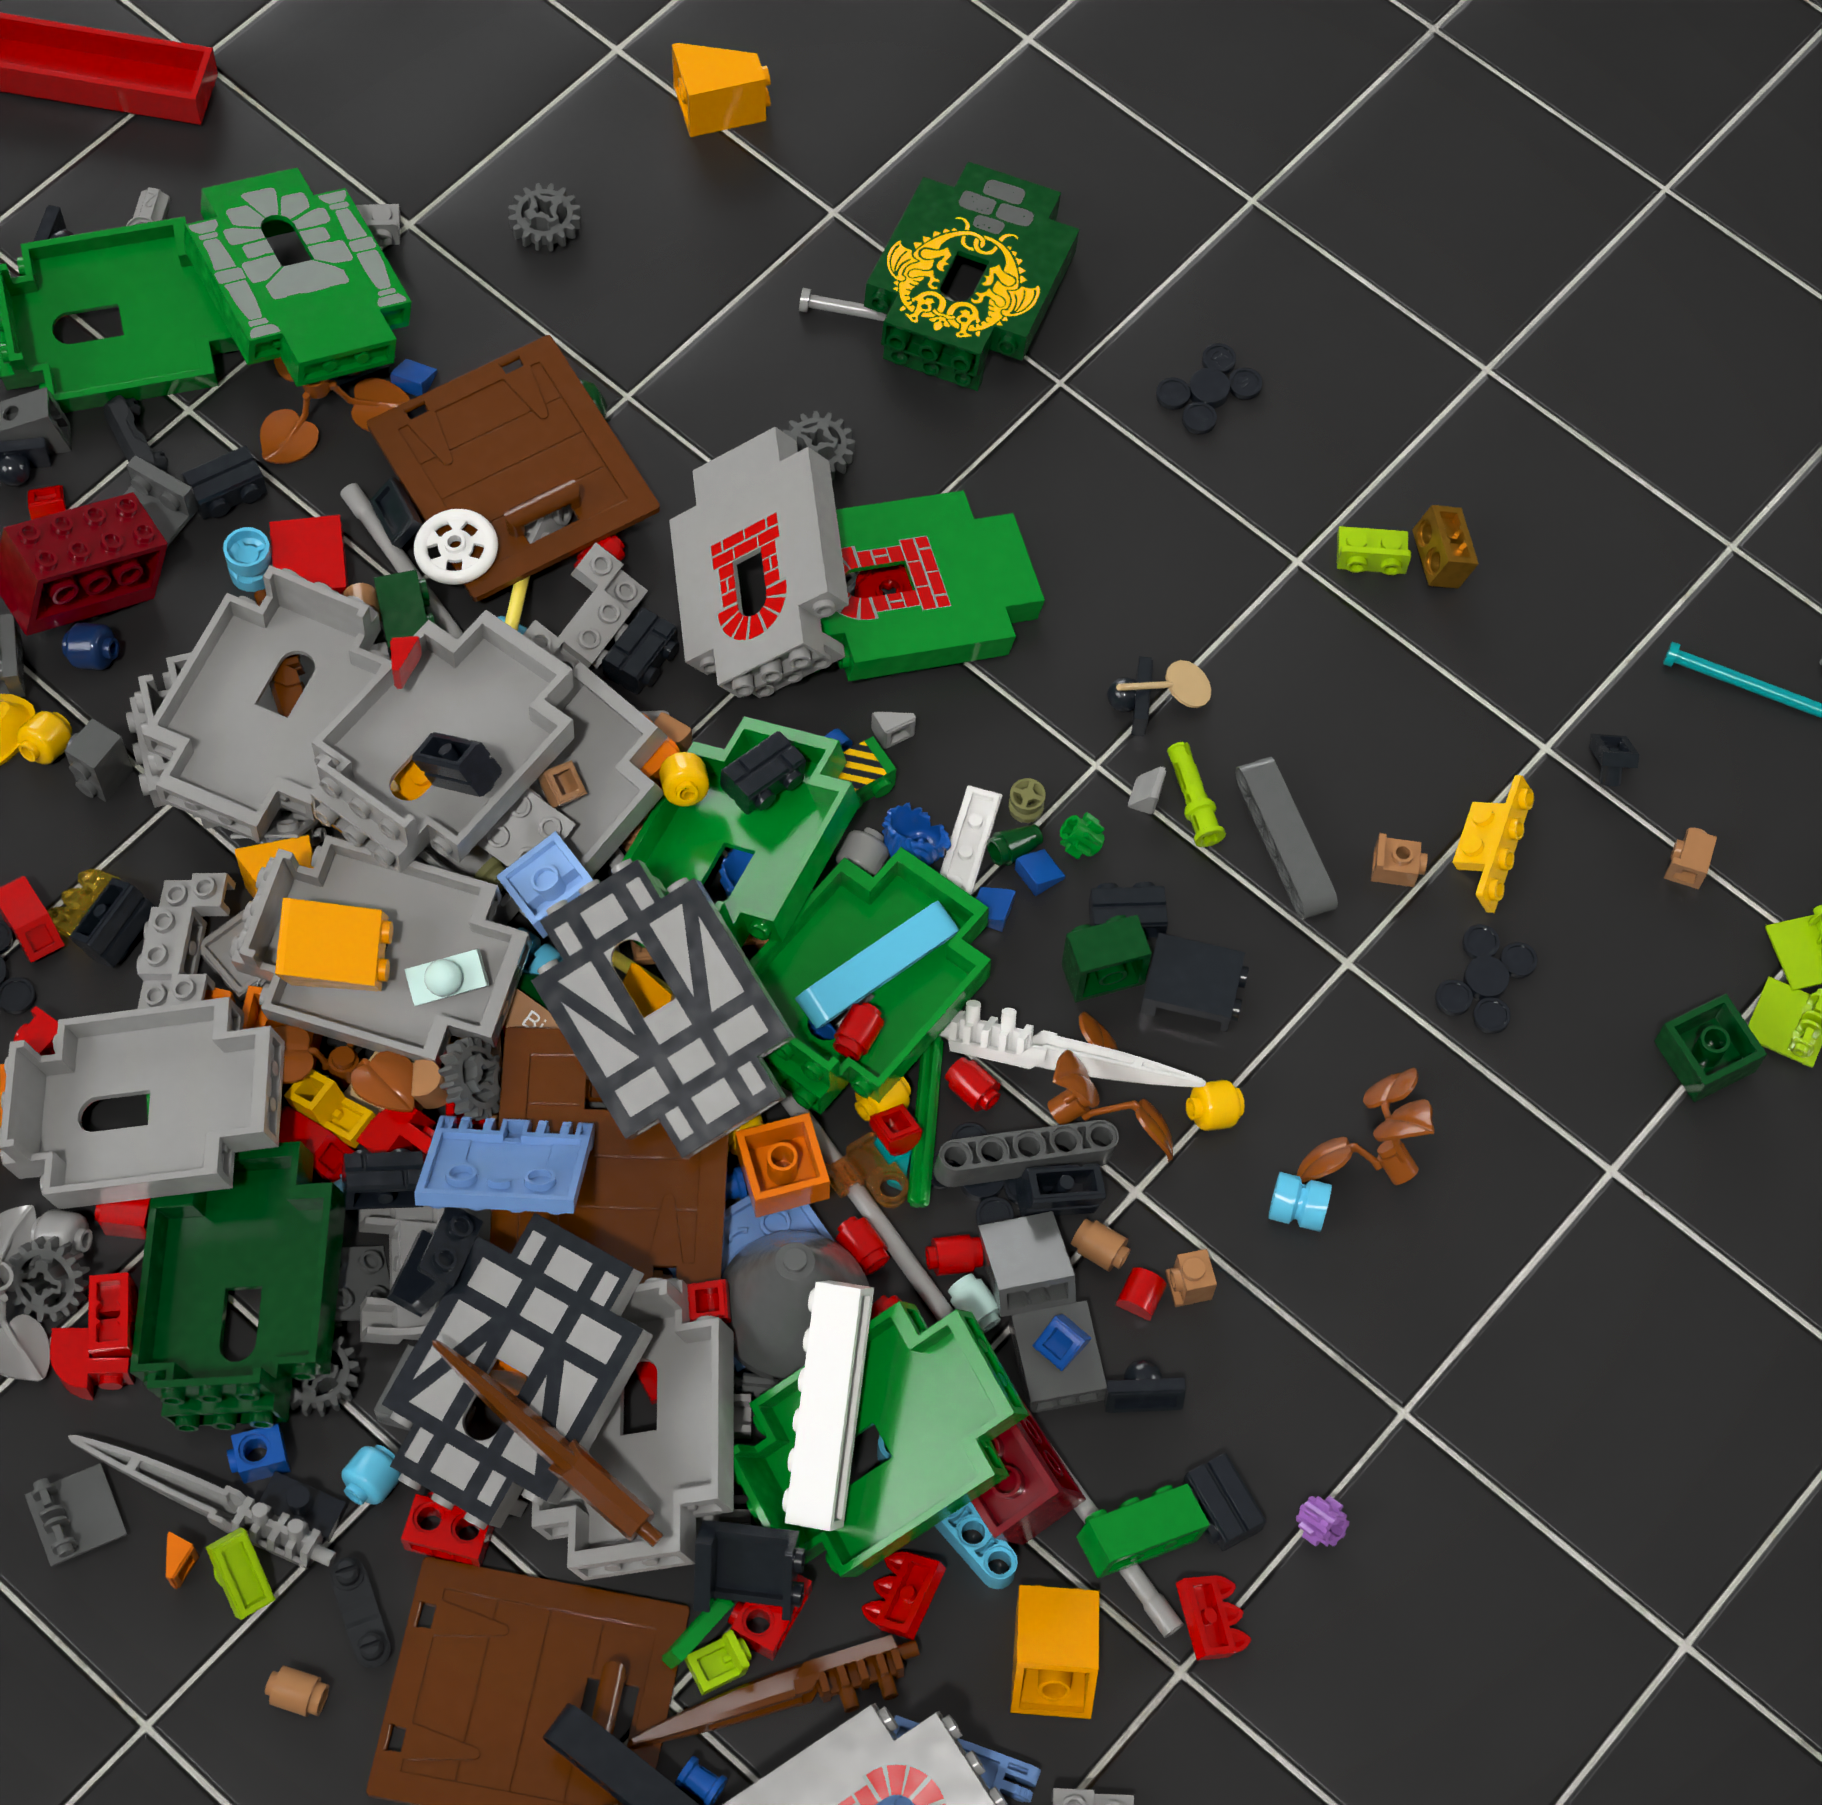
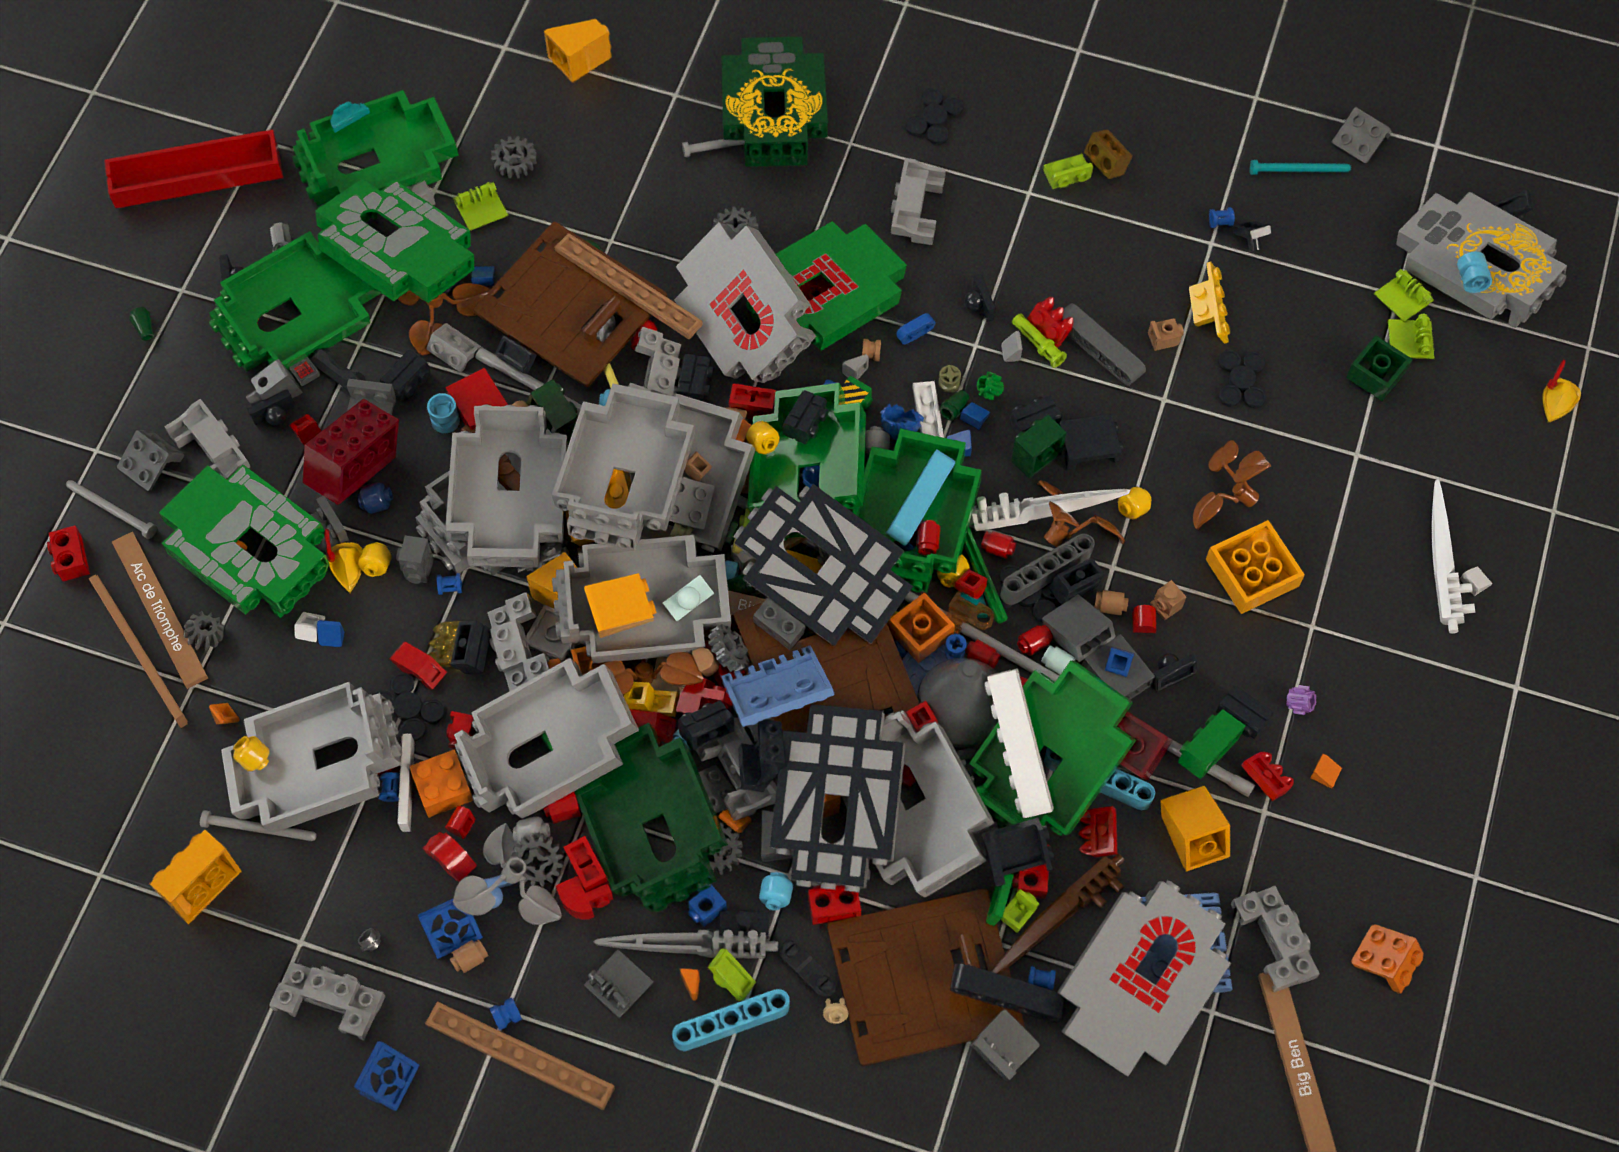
camera: 20 degrees left, 0 degrees up
(87, 421) = (304, 371): none -> tile
(132, 816) = (449, 583): none -> blue bush
(191, 1631) = (722, 1029): none -> medium azure beam
(297, 1691) = (795, 1025): medium nougat brick -> none
(313, 465) = (452, 347): none -> light grey bracket
(330, 64) = (347, 114): none -> teal tile
(364, 1351) = (737, 825): none -> orange slope
(367, 1698) = (835, 1012): none -> tan plate
(400, 123) = (404, 137): none -> green panel
(404, 658) = (581, 427): red slope -> none
(457, 764) = (643, 474): black brick -> none
(460, 272) = (480, 206): none -> lime hinge
(471, 567) = (555, 344): white plate -> none
(544, 878) = (717, 524): light blue plate -> none
(561, 1071) = (778, 623): none -> dark grey brick
(567, 1459) = (893, 832): reddish brown piece -> none
(608, 474) = (629, 286): none -> medium nougat tile
(707, 715) = (752, 399): none -> red brick
(820, 1206) = (951, 642): none -> blue bush
(930, 709) = (872, 349): none -> medium nougat wheel
(1013, 703) = (915, 328): none -> blue beam
(1102, 503) = (910, 195): none -> light grey bracket
(1183, 680) = (1003, 281): tan piece -> none
(1223, 773) = (1049, 321): none -> red plate
(1300, 1201) = (1203, 536): medium azure wheel -> none
(1308, 1650) = (1326, 771): none -> orange slope
(1352, 1281) = (1254, 567): none -> light orange slope
(1590, 710) = (1216, 219): none -> blue bush
(1657, 1418) = (1446, 579): none -> white piece
(1691, 858) = (1319, 271): medium nougat brick -> none
(1702, 1448) = (1477, 579): none -> white slope

